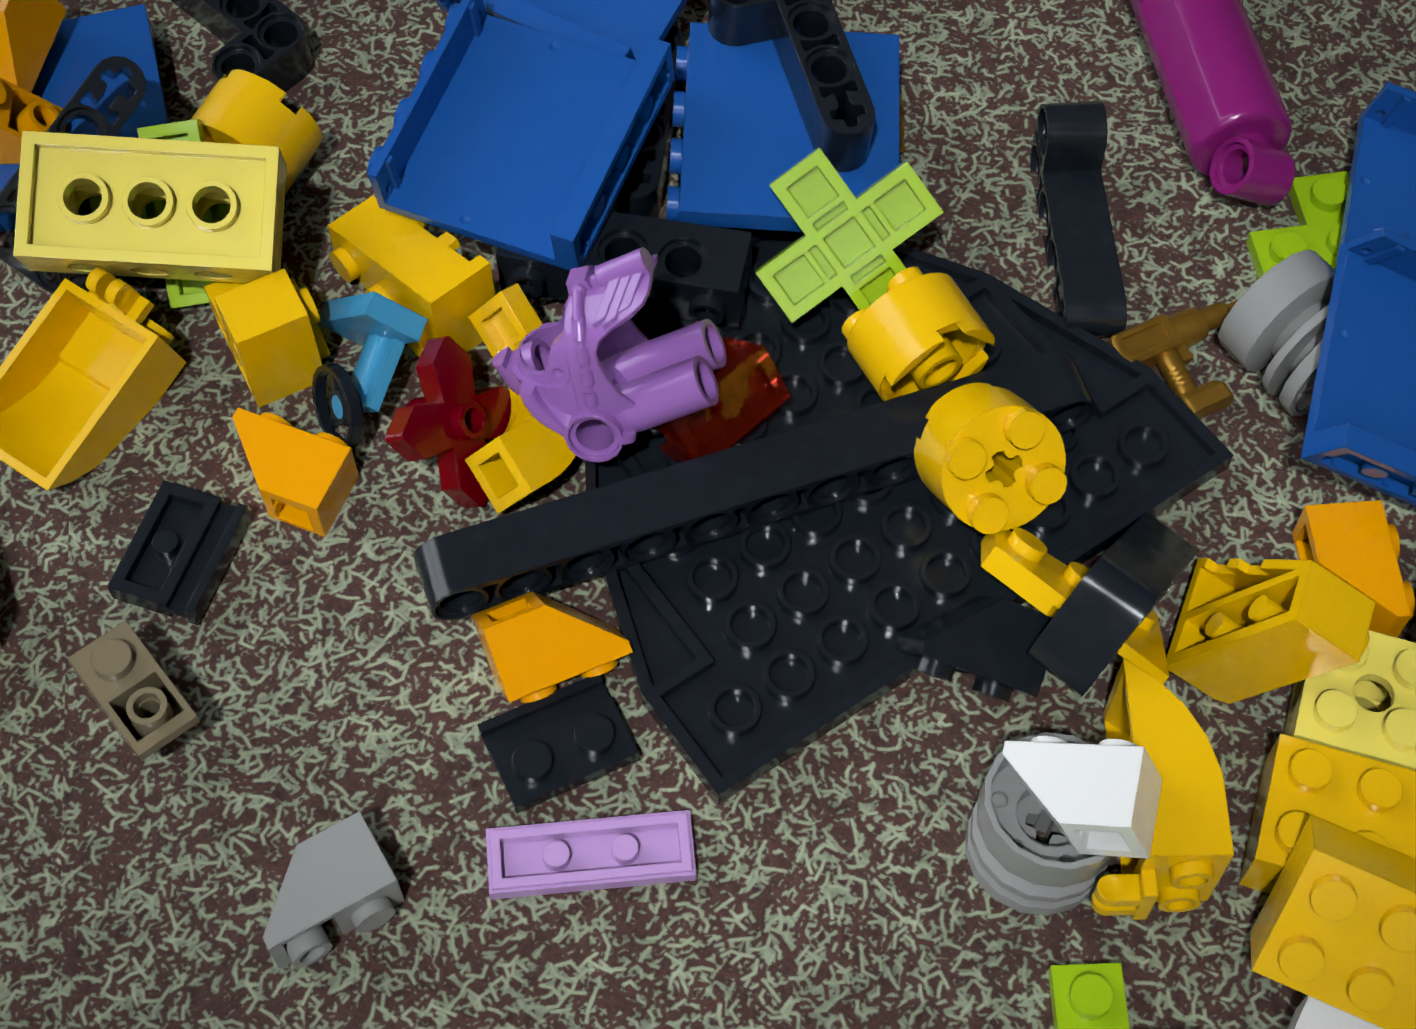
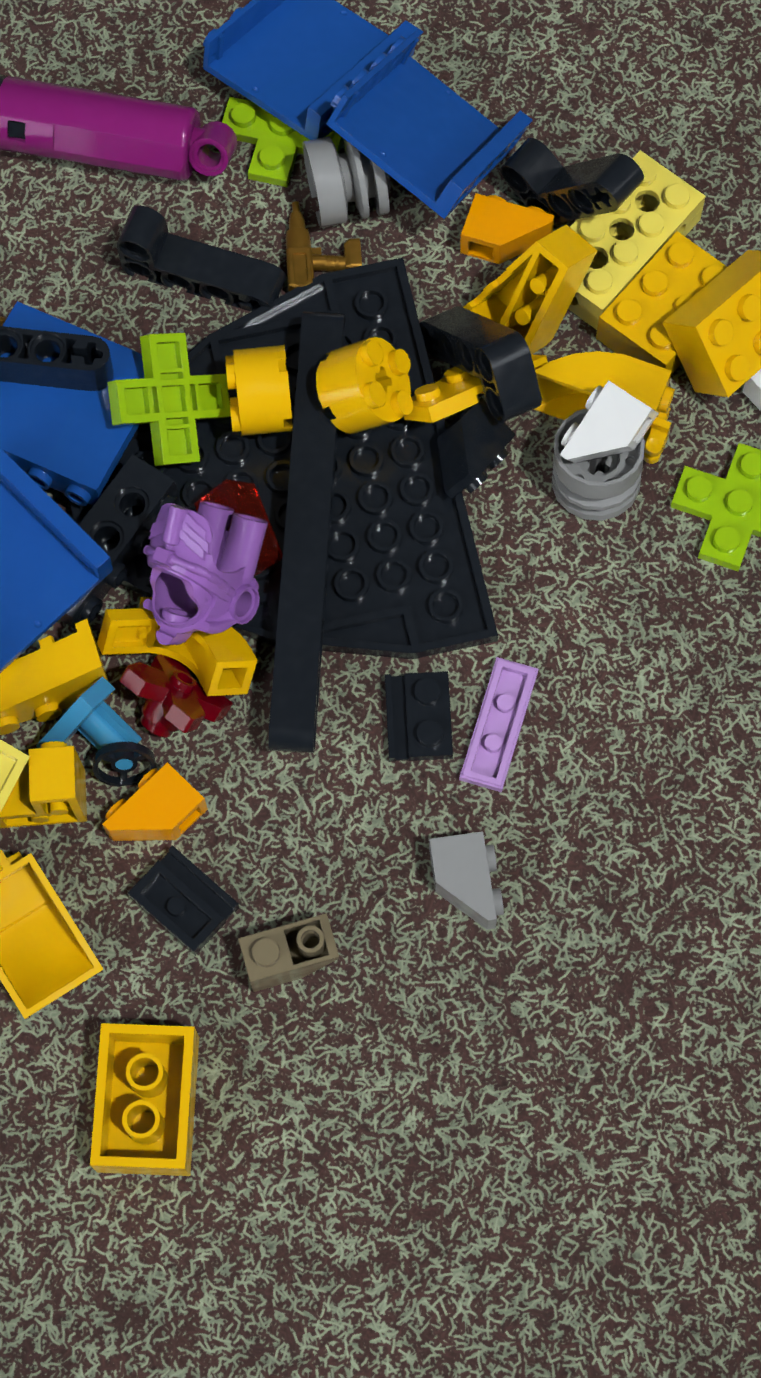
camera: 65 degrees left, 10 degrees up
(542, 642) = (356, 697): light orange slope -> none

